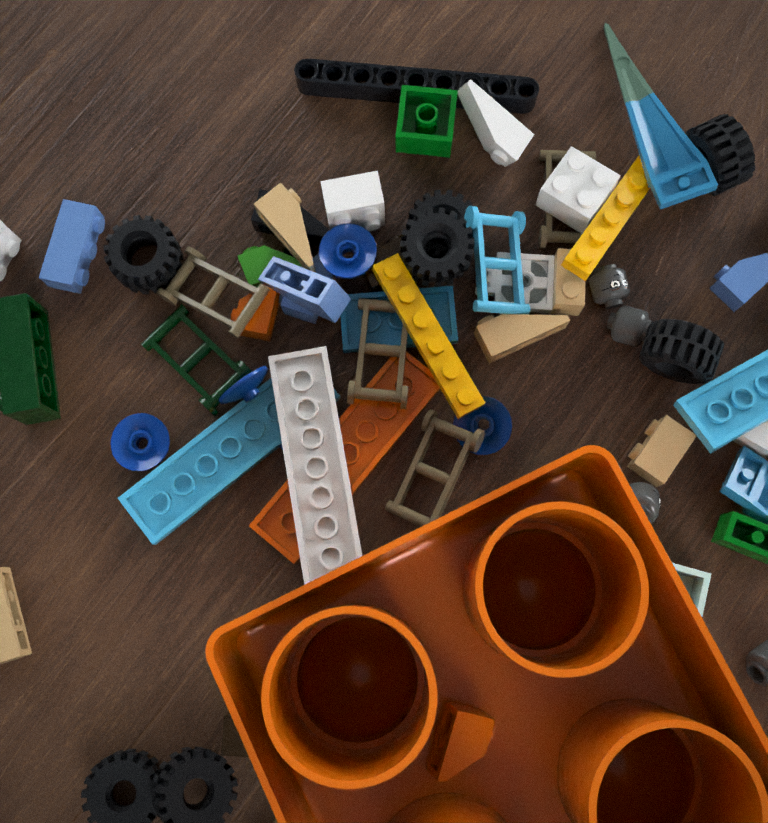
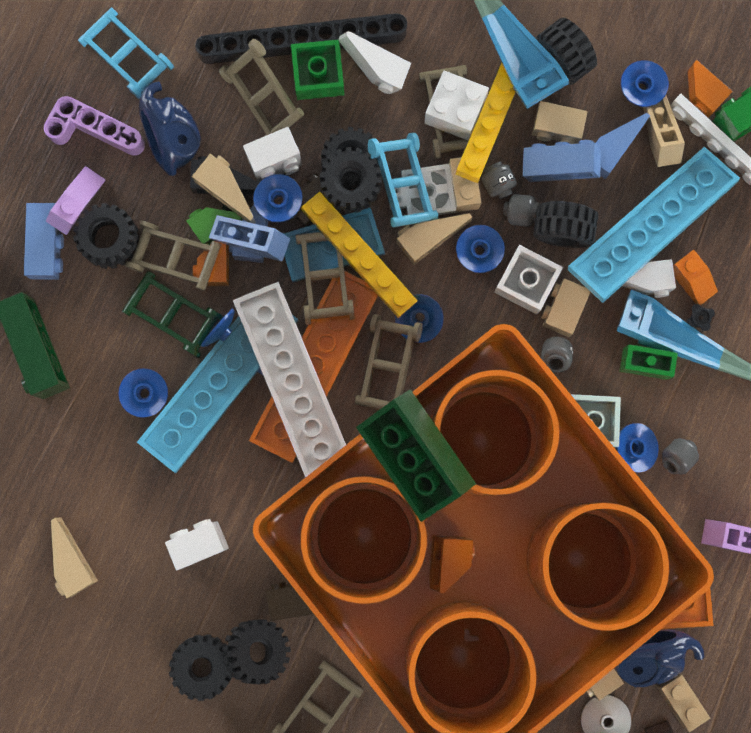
camera: 20 degrees left, 5 degrees up
(115, 205) = (75, 200): none -> lavender slope
(154, 639) = (197, 544): none -> white brick
(166, 137) = (97, 129): none -> lavender beam
(219, 103) = (161, 61): none -> medium azure piece
(243, 152) = (168, 129): none -> dark blue piece
(327, 110) = (230, 75): none -> dark tan piece
(446, 597) = (415, 455): none -> dark green brick
(579, 349) = (483, 237): none -> blue dish
(623, 407) = (528, 279): none -> white brick
(690, 278) = (562, 161): none -> medium blue brick
(692, 237) = (559, 123): none -> tan brick
(726, 633) = (644, 445): none -> blue dish

